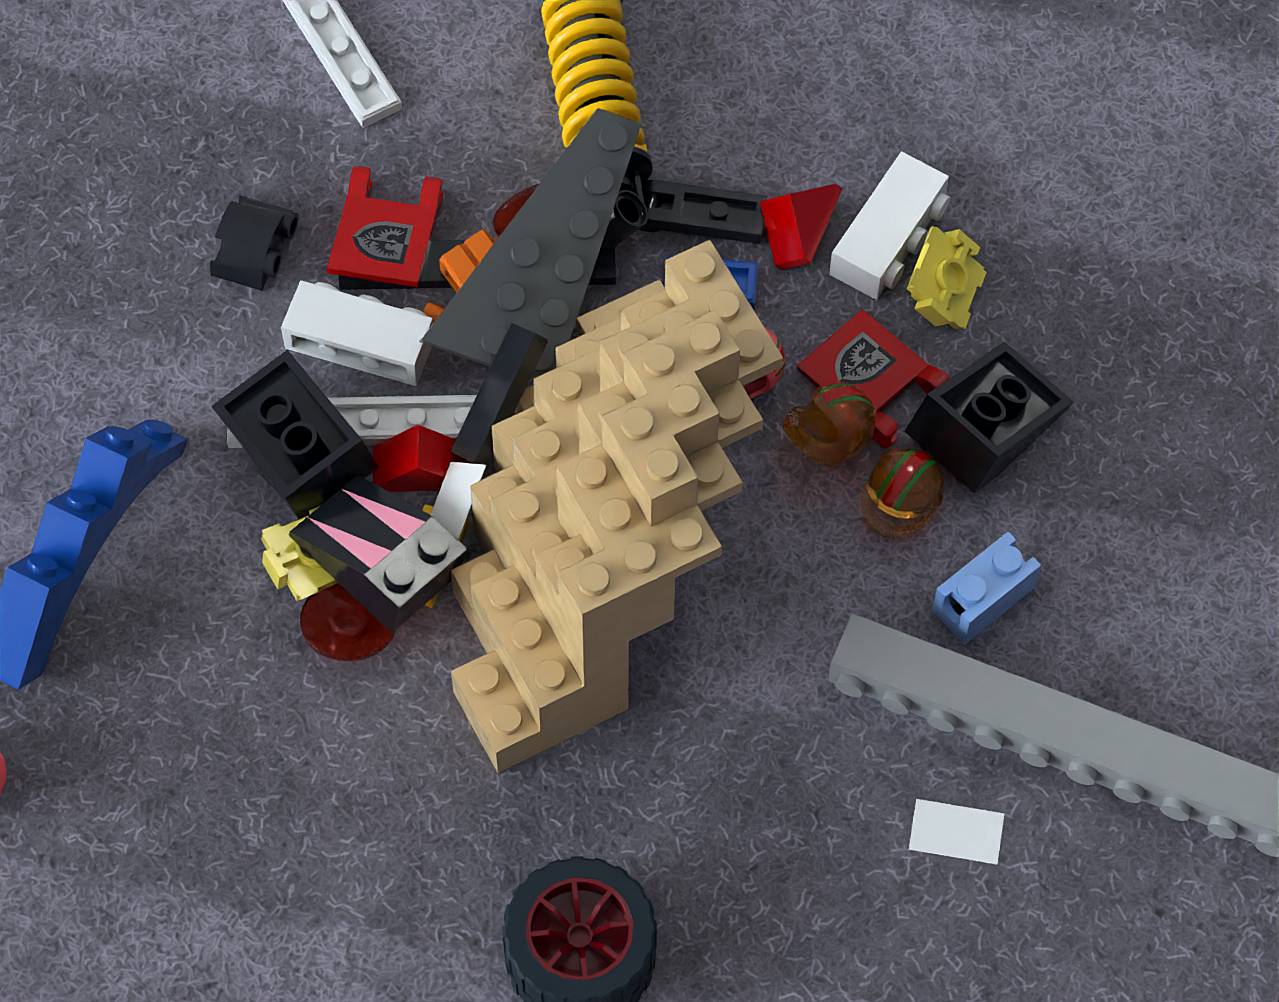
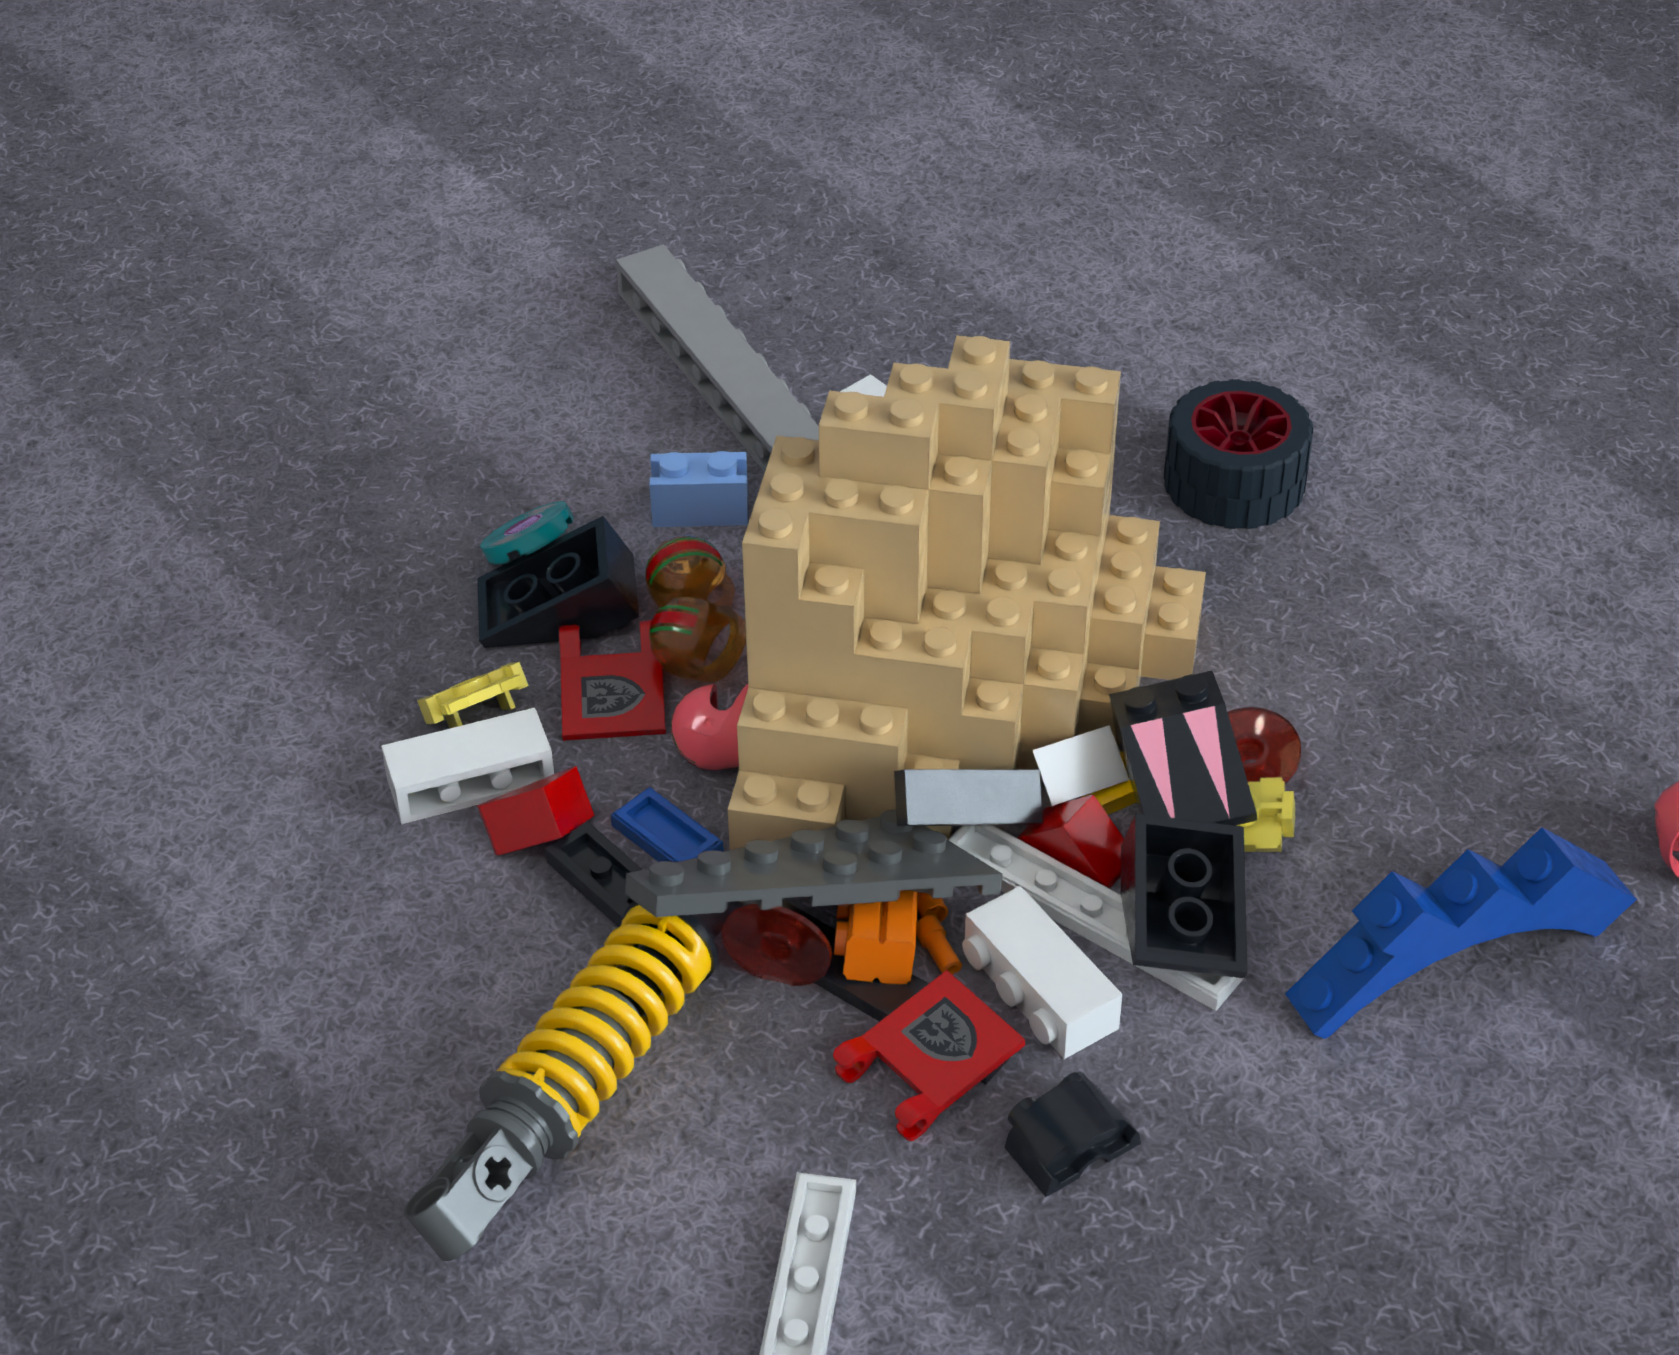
camera: 140 degrees left, 20 degrees down
(1066, 443) = (527, 532): none -> teal tile

